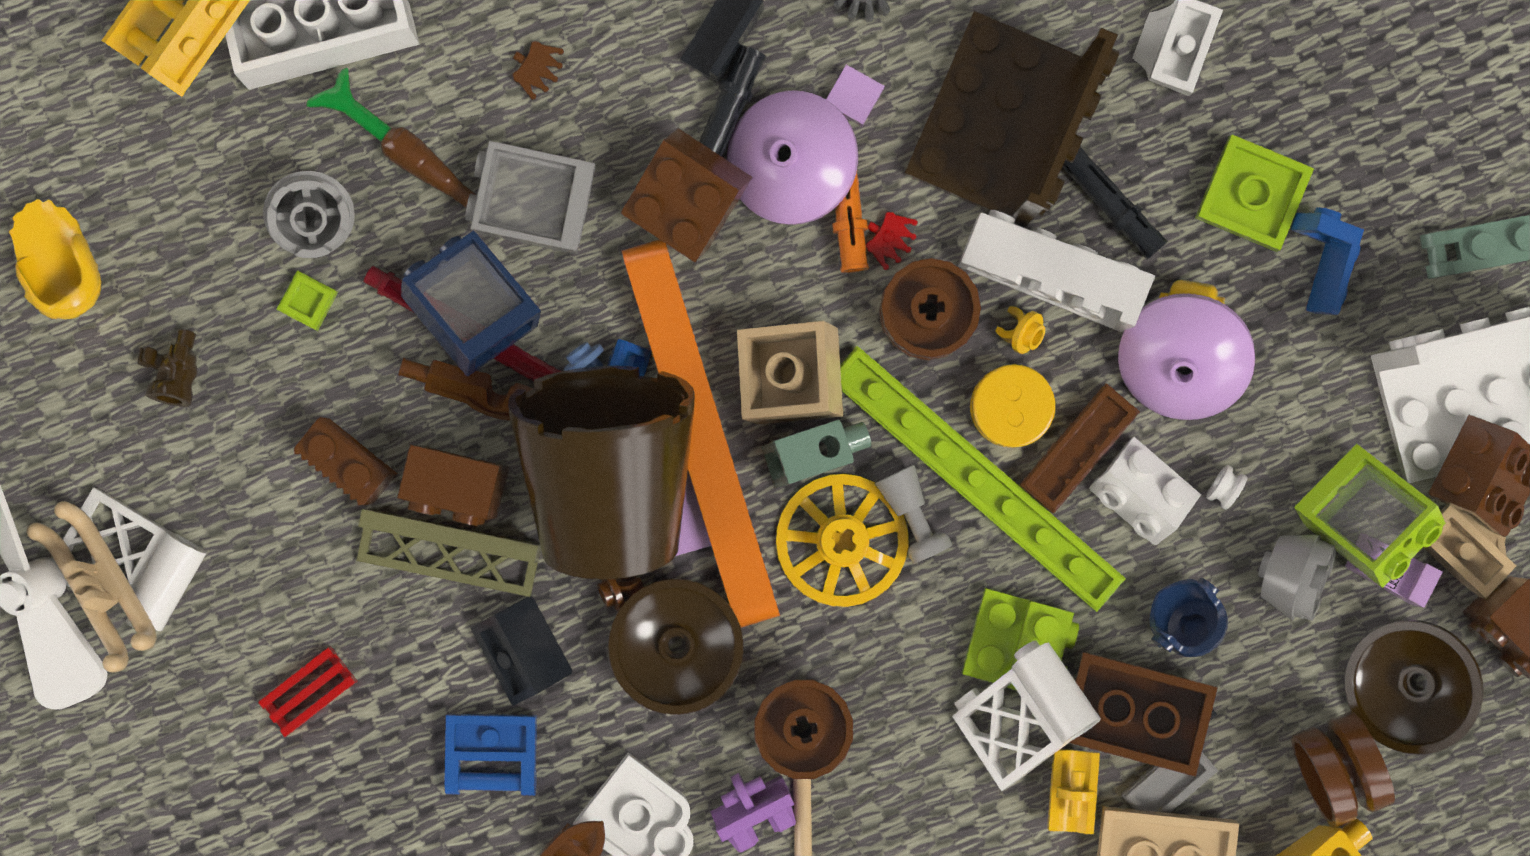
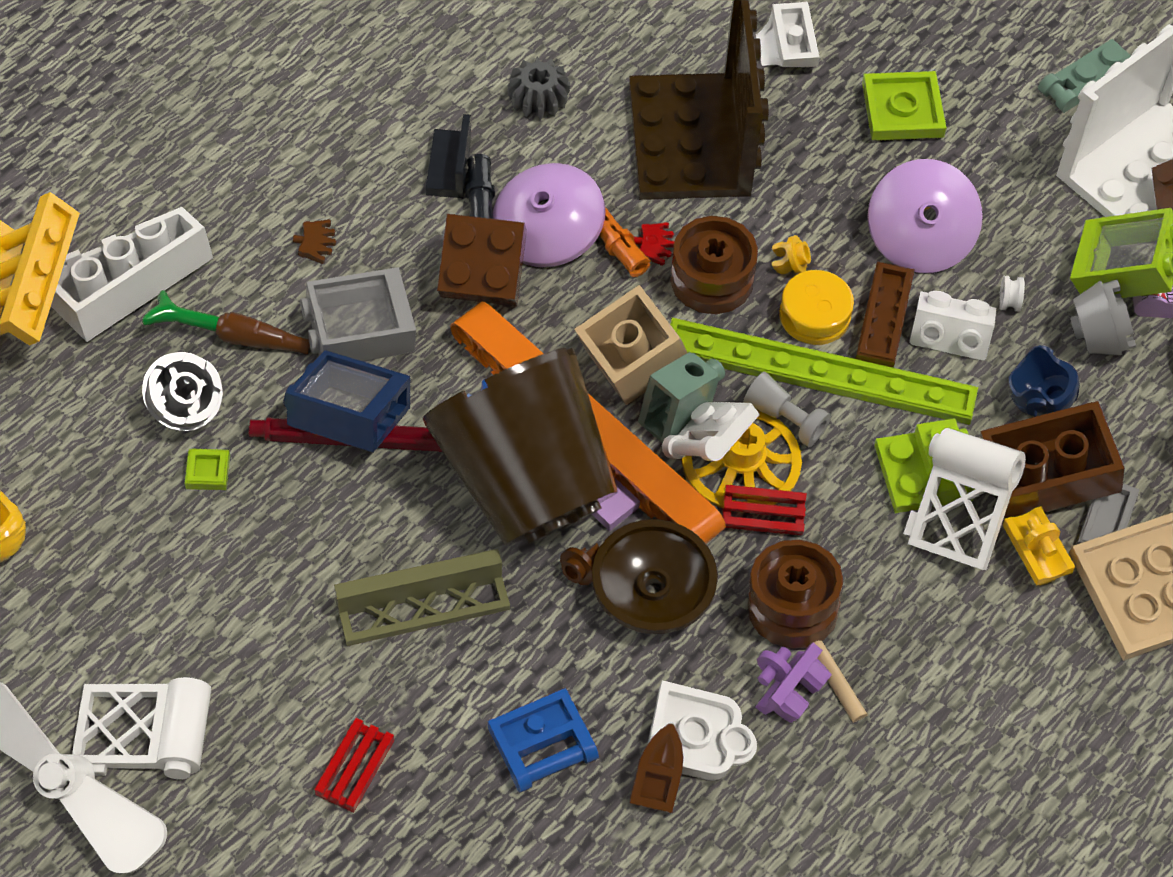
camera: 30 degrees left, 30 degrees down
(97, 585) = (126, 742): tan piece -> none
(175, 371) = (119, 563): dark brown piece -> none
(344, 461) = (299, 563): reddish brown brick -> none
(452, 383) = (381, 467): reddish brown piece -> none
(452, 483) = (402, 528): reddish brown brick -> none
(522, 650) = (523, 649): black panel -> none
(821, 628) = (769, 495): none -> red tile
(827, 514) = (711, 430): none -> white plate
(855, 94) = (573, 155): lavender tile -> none
(1056, 271) = (801, 200): white wedge -> none
(1115, 204) = (812, 152): black pin -> none
(1337, 258) = (984, 107): blue bracket -> none

